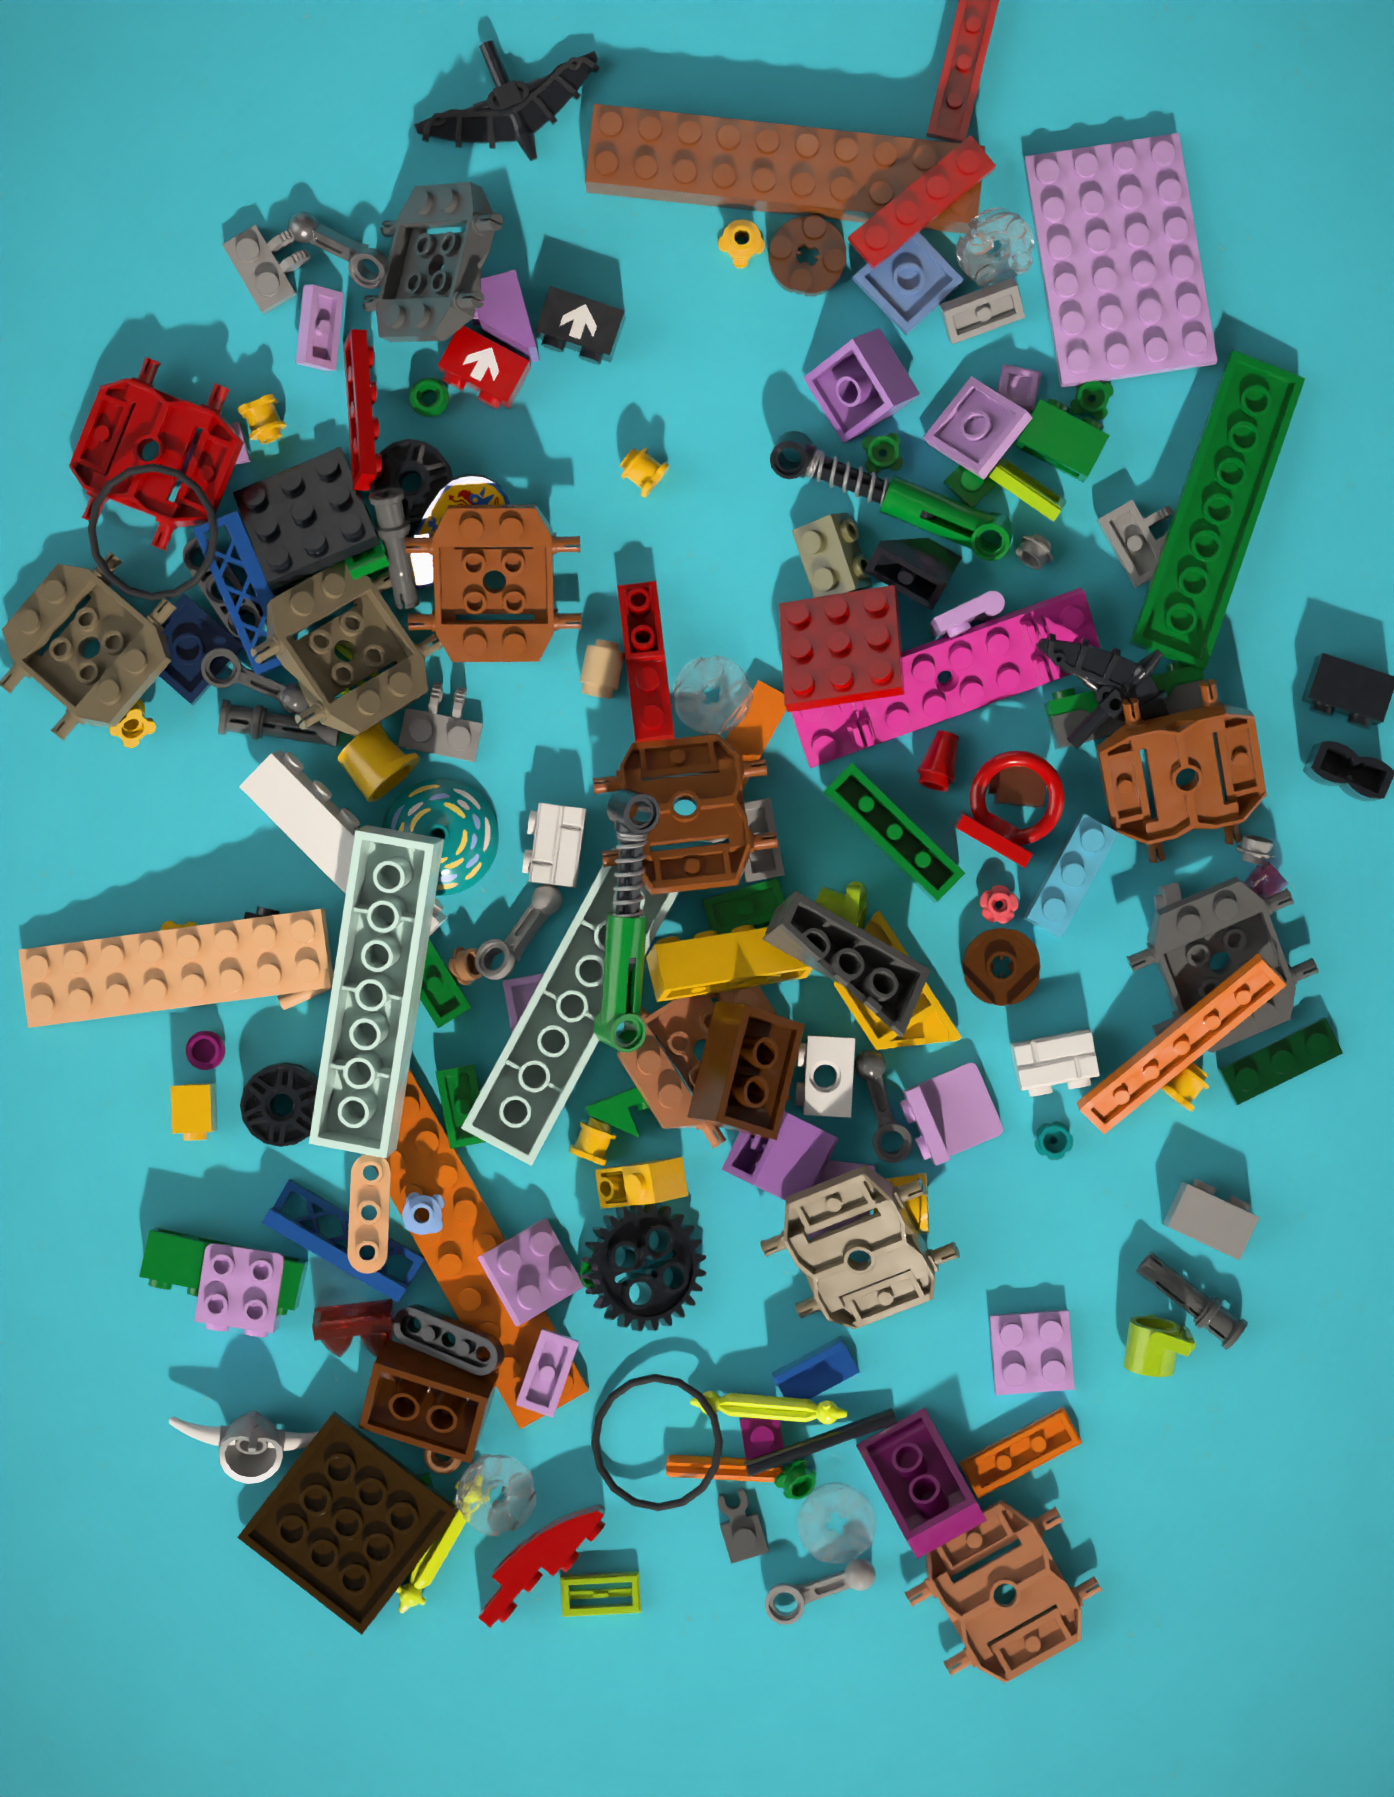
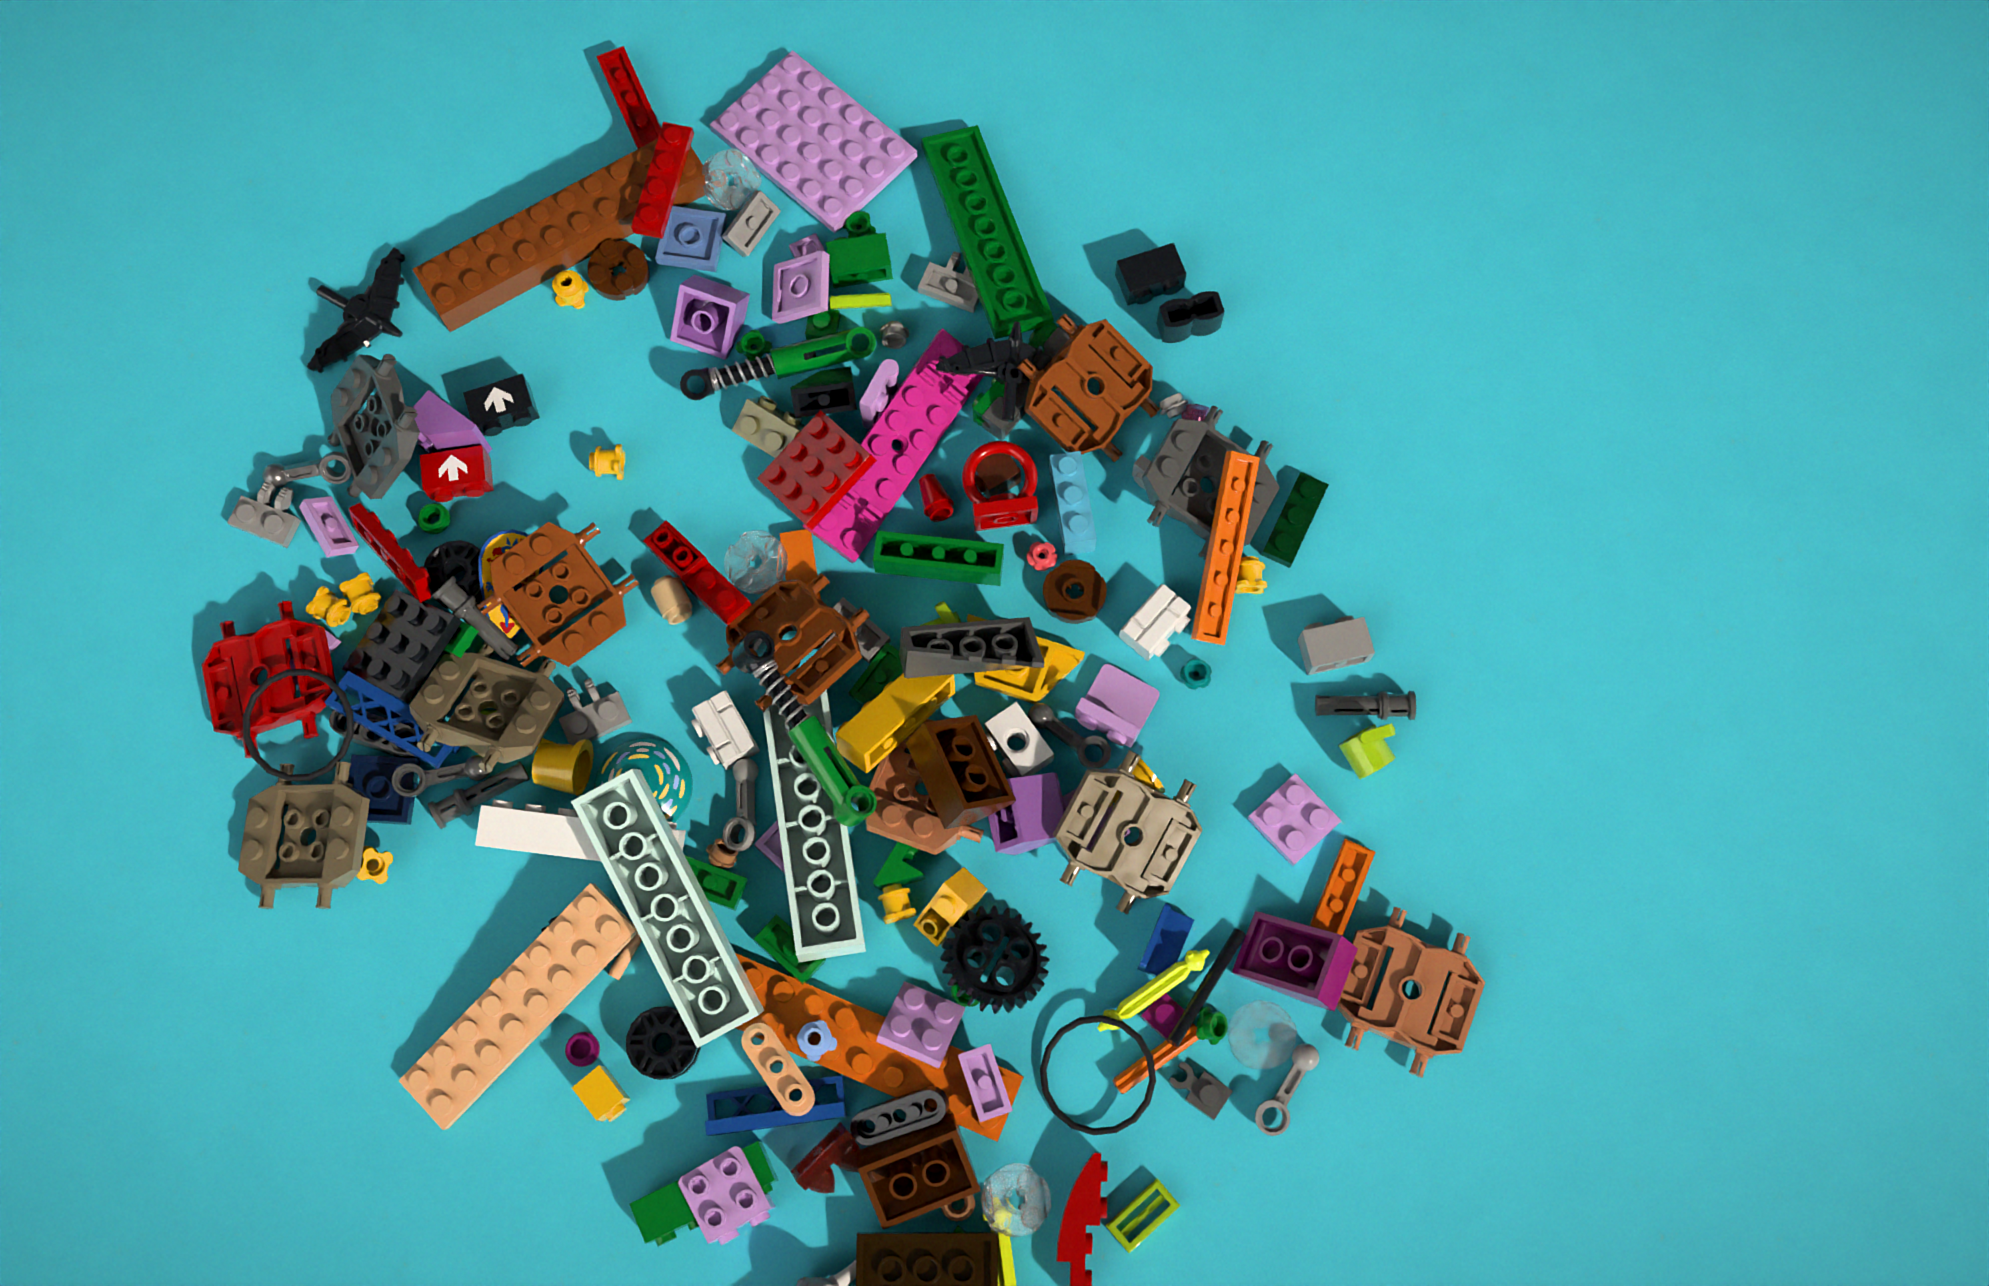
camera: 35 degrees left, 15 degrees down
(303, 429) = (361, 594): none -> yellow brick

